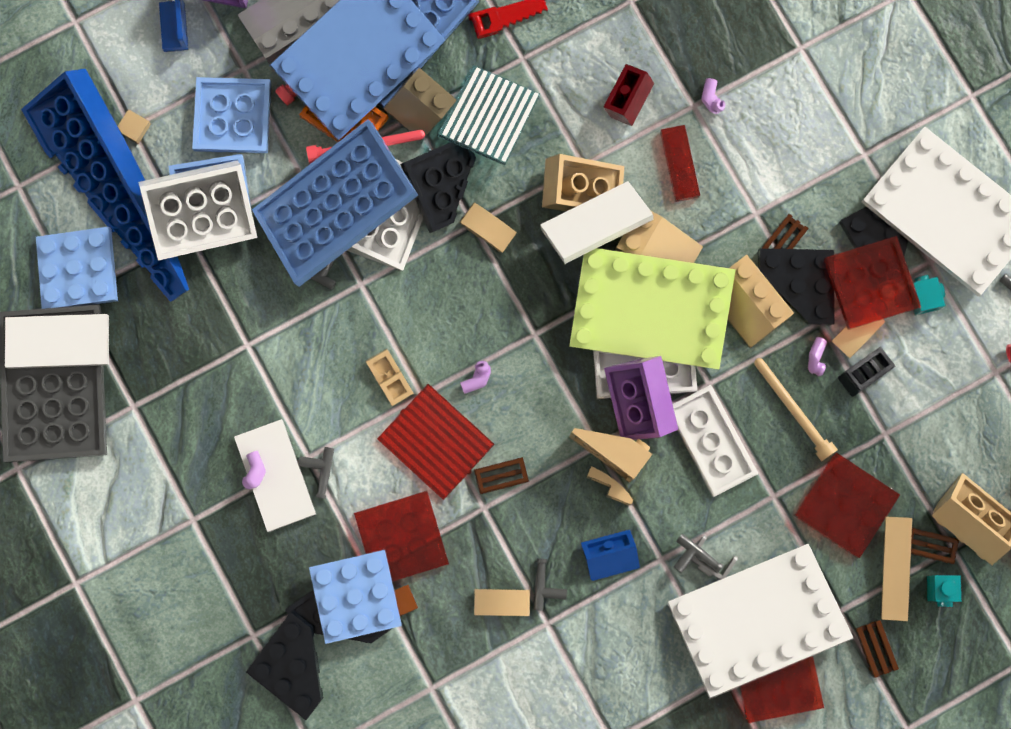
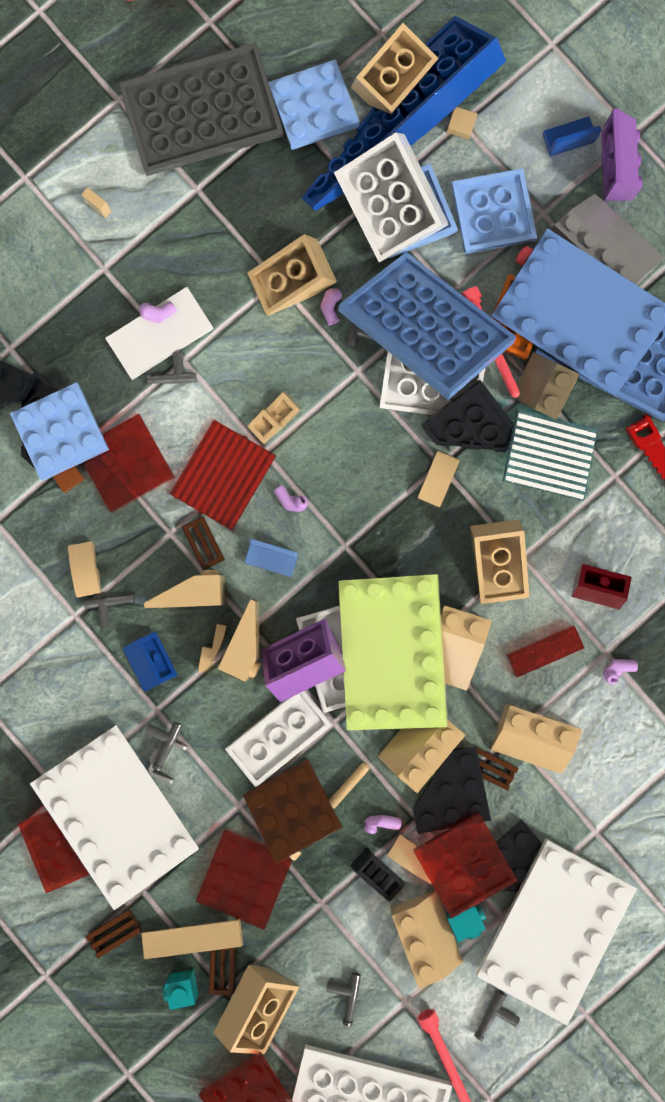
camera: 85 degrees right, 5 degrees up
(56, 341) = (239, 101): white tile -> none
(66, 180) = (394, 70): none -> tan slope
(123, 511) = (96, 202): none -> tan tile
(249, 328) = (292, 275): none -> tan slope
(286, 298) = (327, 305): none -> lavender arm
(531, 409) = (271, 558): none -> medium blue panel
(551, 488) = (198, 590): none -> tan slope
(596, 222) = (464, 581): white tile -> none
(763, 190) = (535, 738): none -> tan slope
(788, 441) = (292, 811): none -> reddish brown plate
(936, 337) = (426, 938): none -> tan slope
(977, 422) = (351, 992): none -> dark grey piece

